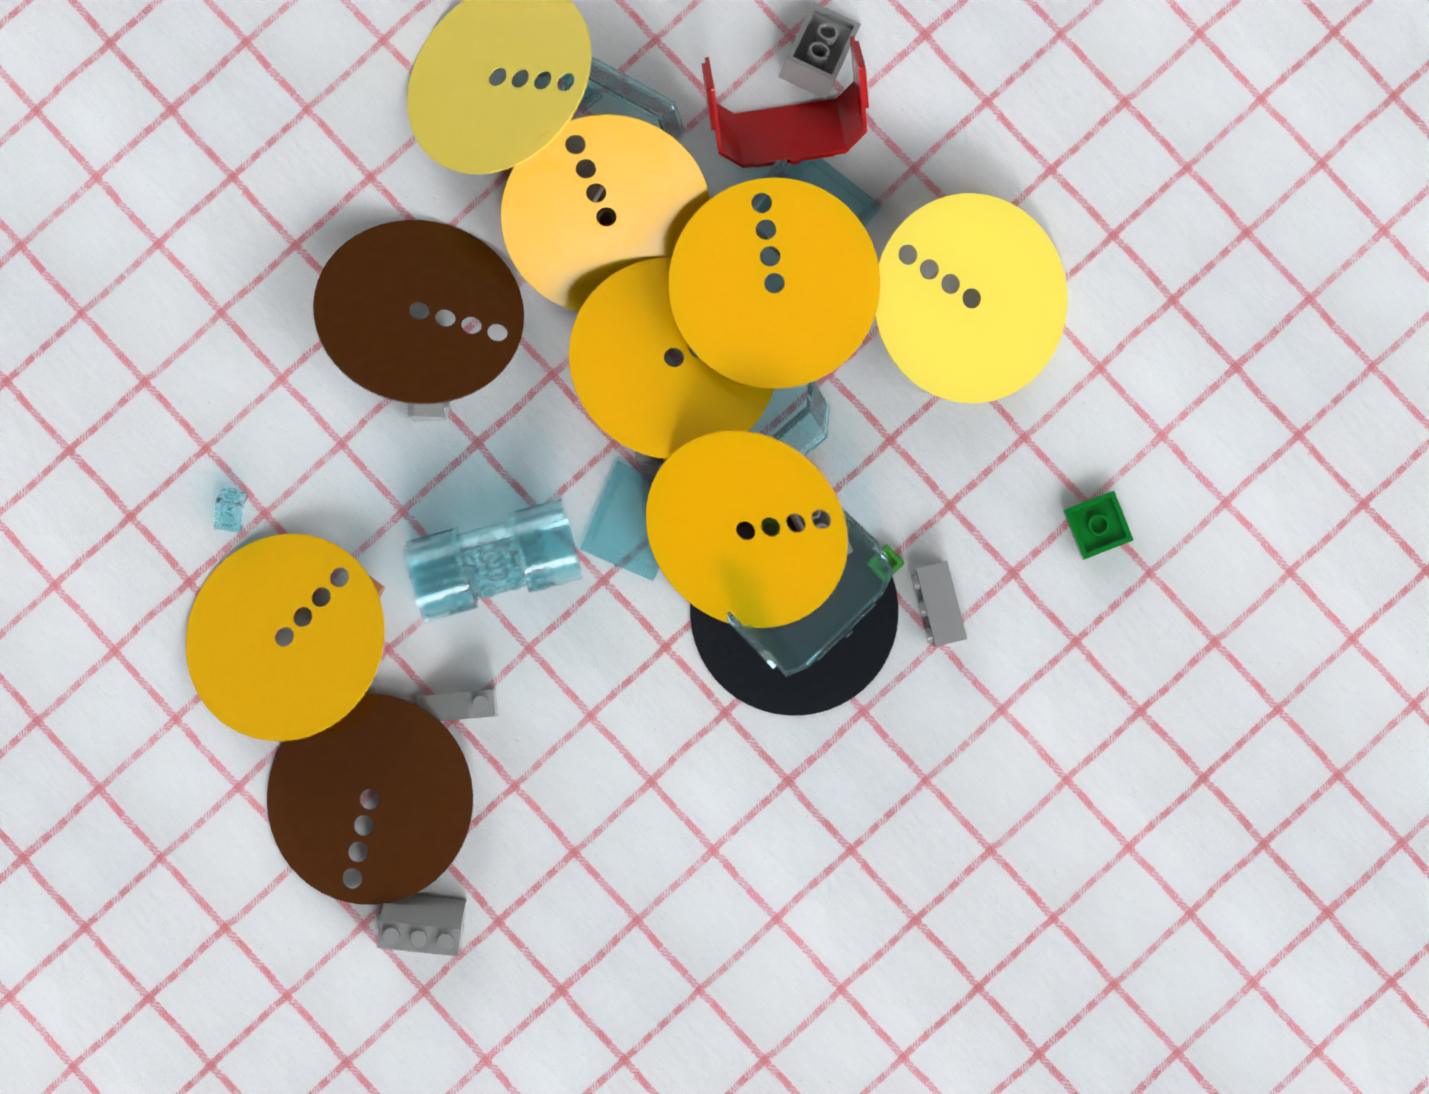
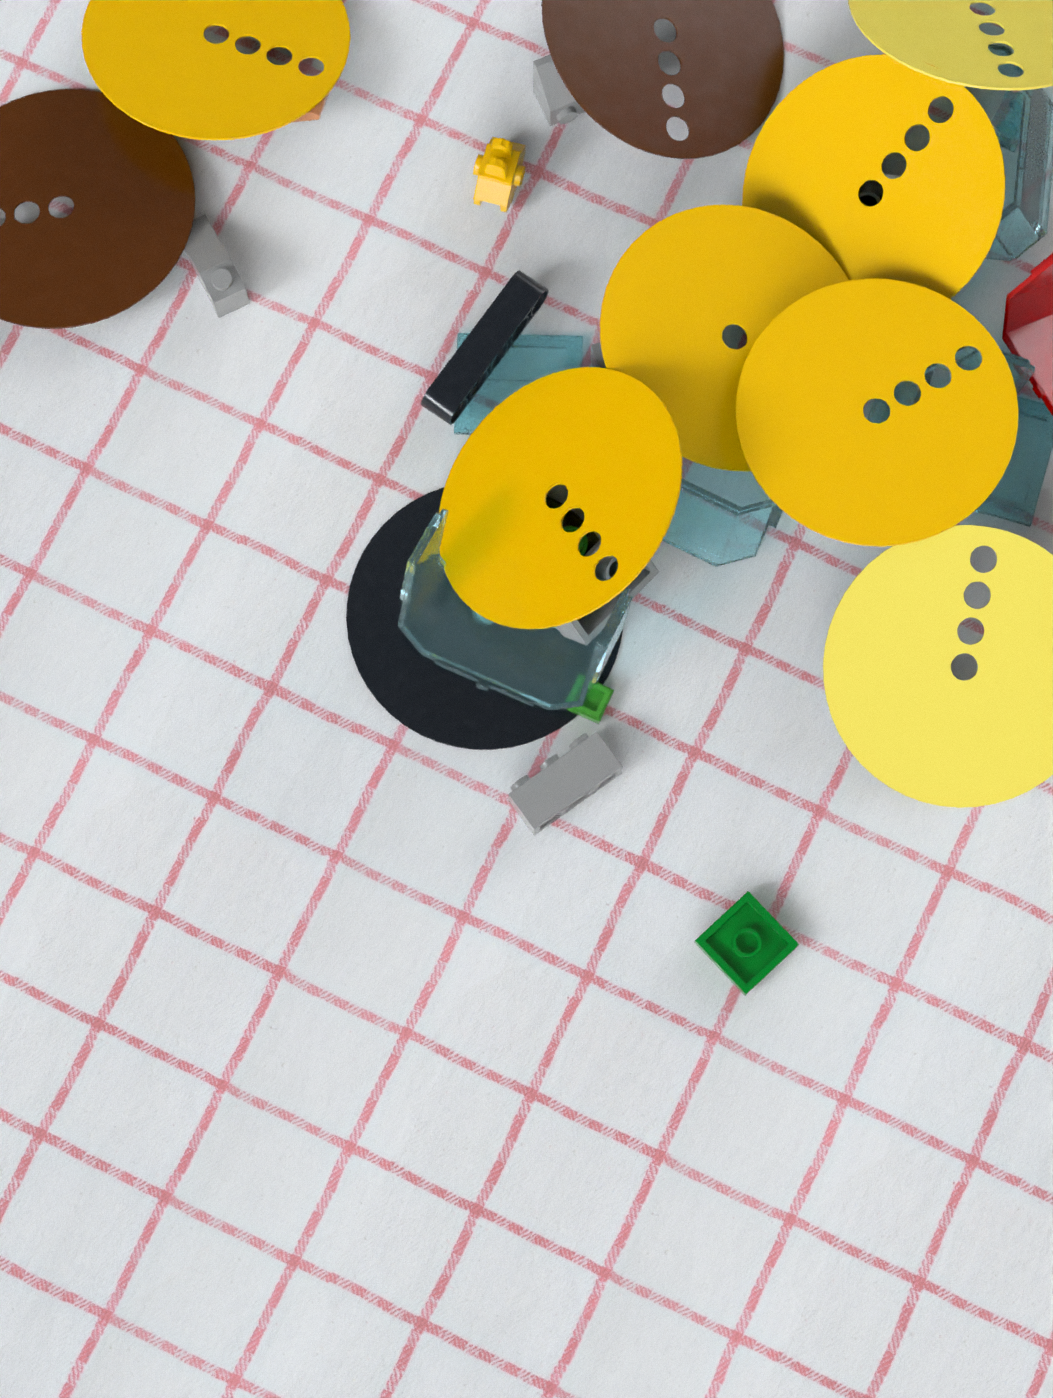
camera: 70 degrees right, 10 degrees down
(458, 569) = (401, 226): clear light blue cylinder -> none
(473, 472) = (499, 172): none -> yellow hinge
(603, 535) = (484, 347): none -> black beam

